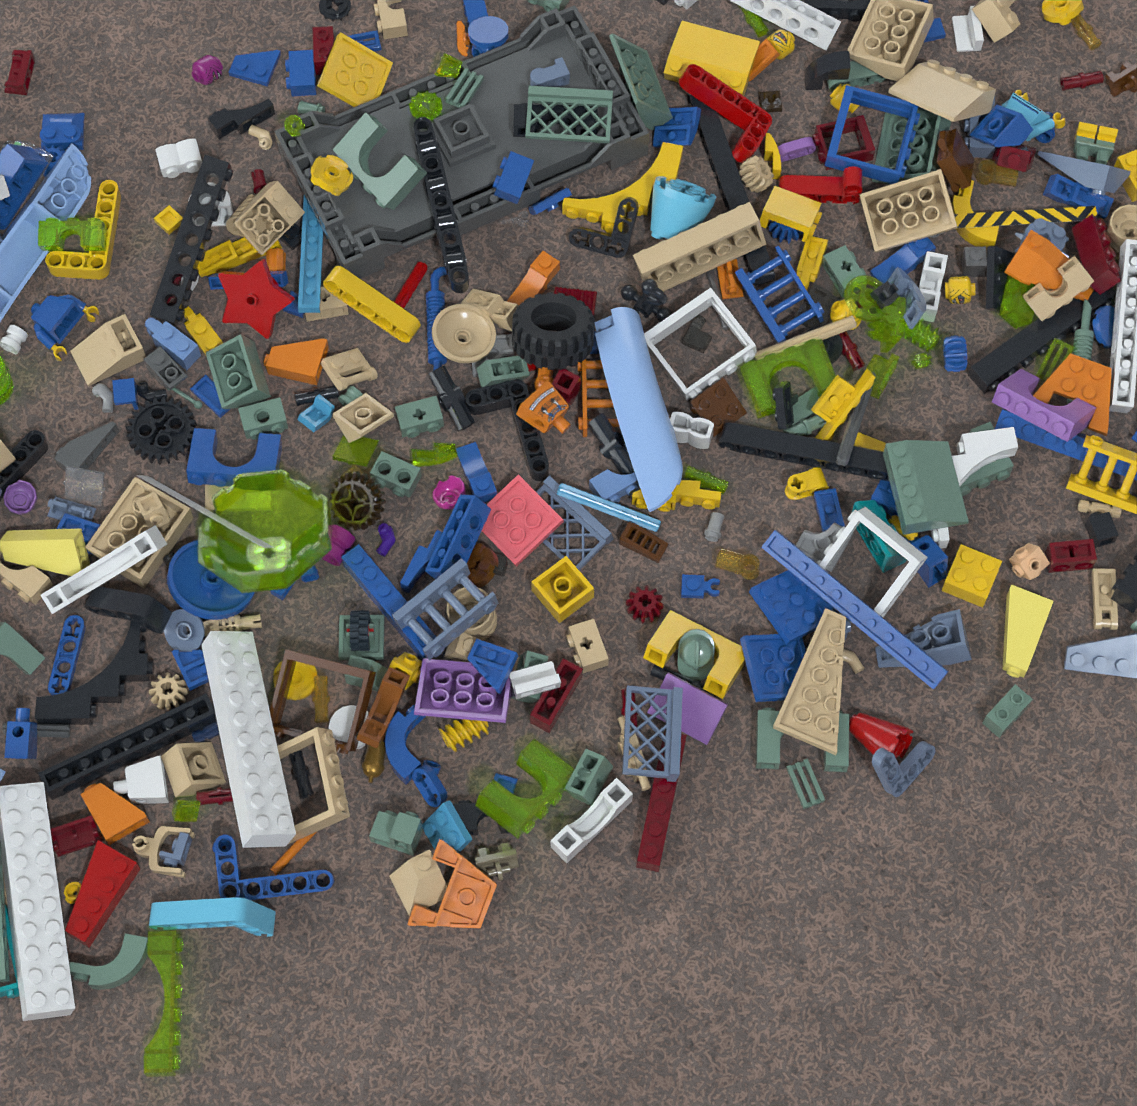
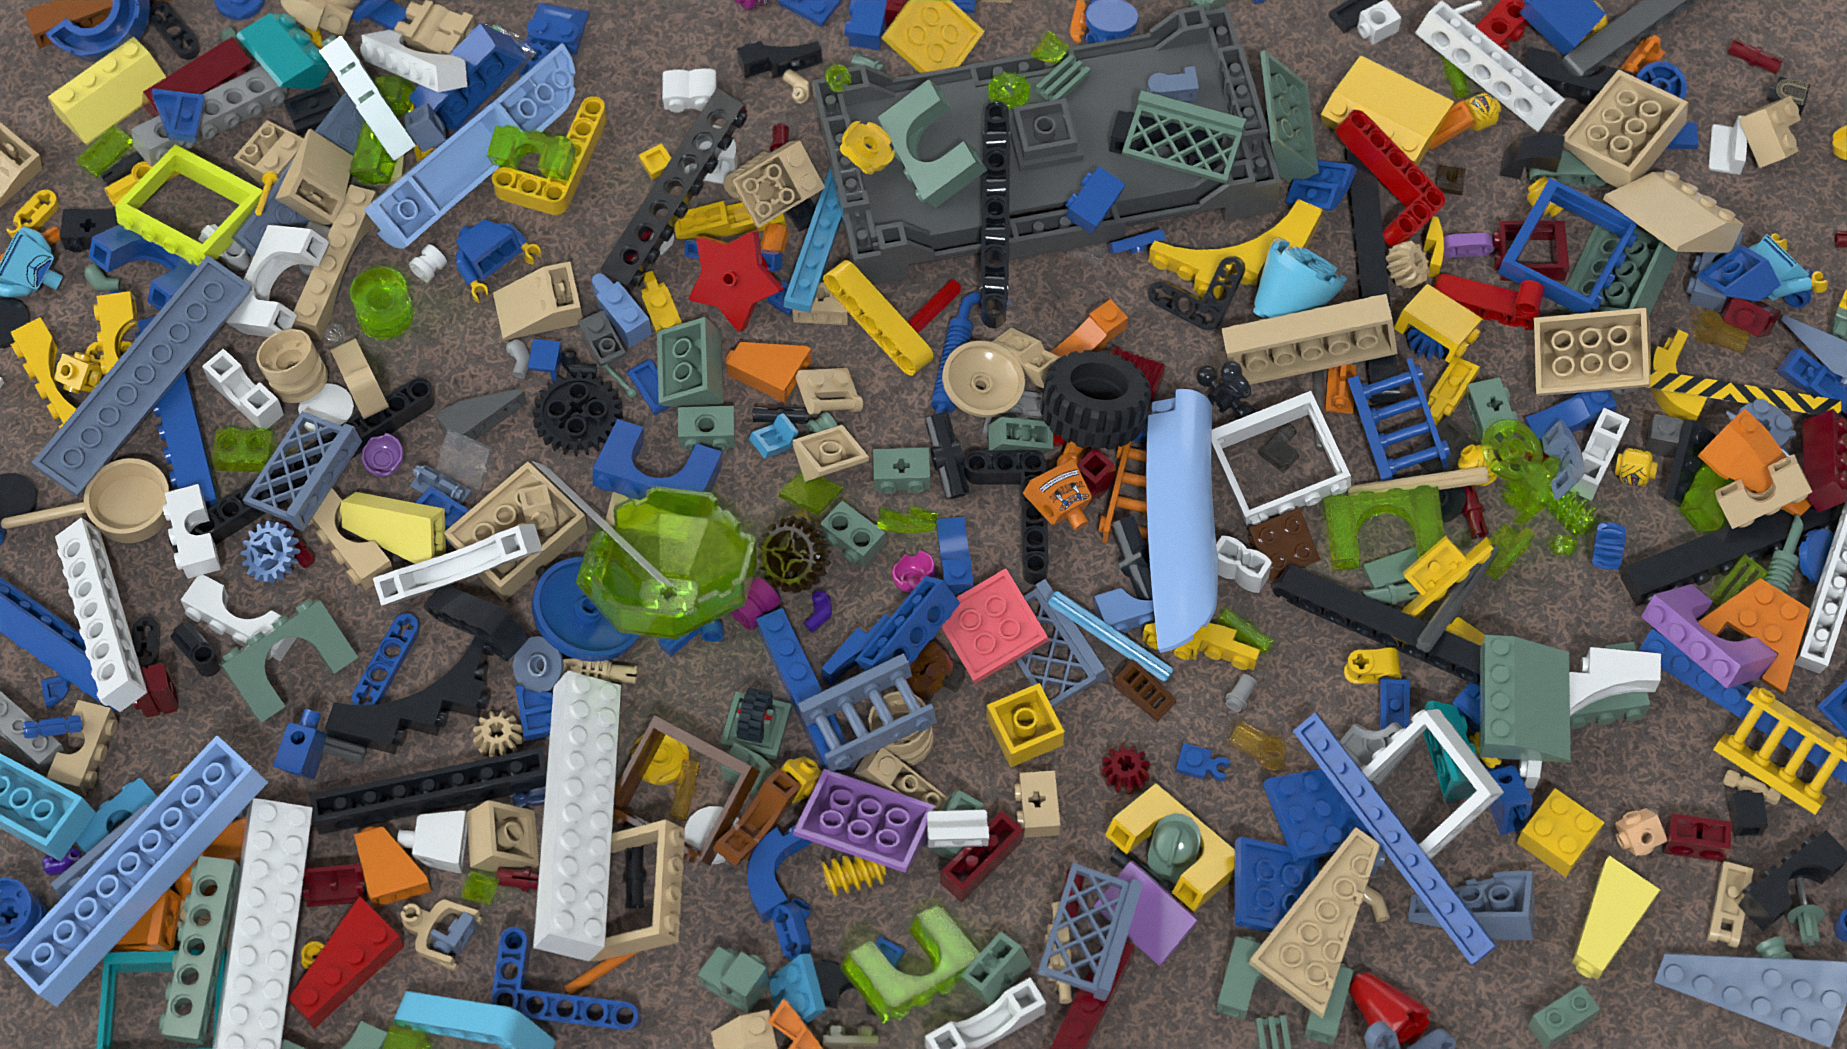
camera: 15 degrees right, 5 degrees down
(374, 761) = (730, 883): pearl gold piece -> none
(492, 663) = (910, 794): blue wing -> none
(784, 404) = (1369, 557): black hinge -> none
(885, 294) = (1535, 449): black tile -> none
(955, 159) = (1669, 300): reddish brown piece -> none

